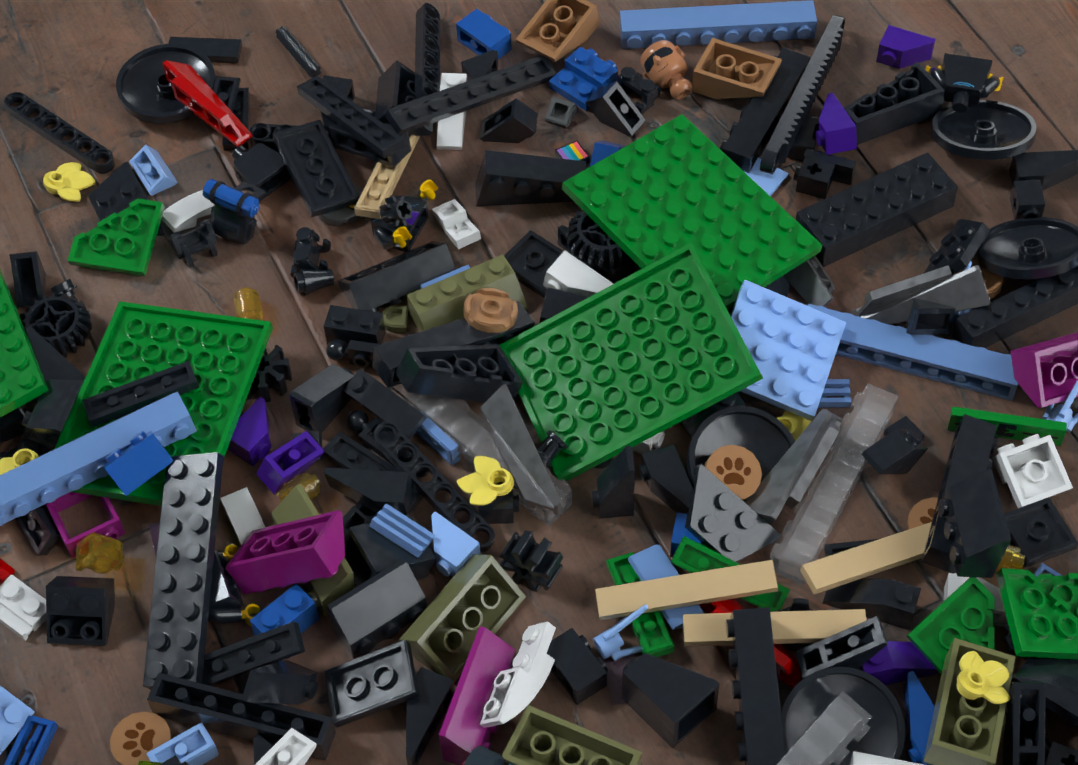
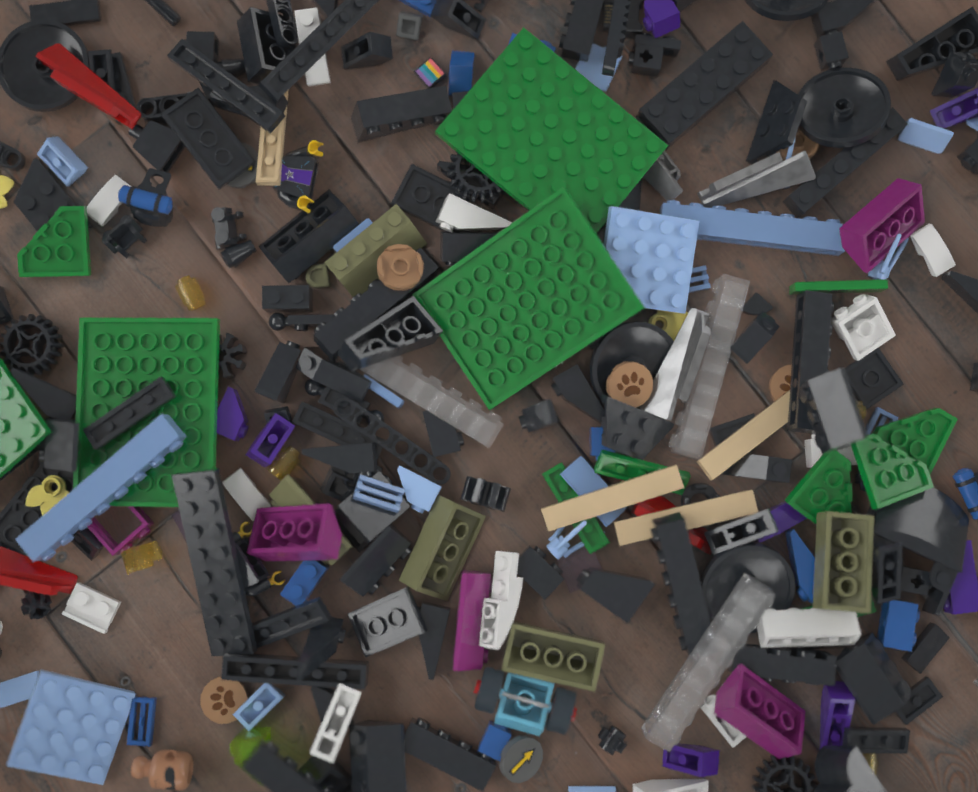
camera: 15 degrees left, 30 degrees up
(64, 287) = (26, 305): black plate -> none
(79, 610) = (141, 603): black slope -> none
(137, 462) = (149, 487): blue brick -> none
(395, 211) = (293, 181): black gear -> none
(456, 224) = (345, 168): white slope -> none
(483, 482) = (431, 432): light yellow plate -> none
(520, 452) = (455, 403): flat silver wedge -> none
(550, 448) = (472, 395): black bush -> none
(929, 318) = (763, 199): black slope -> none
(982, 679) = (857, 545): light yellow plate -> none

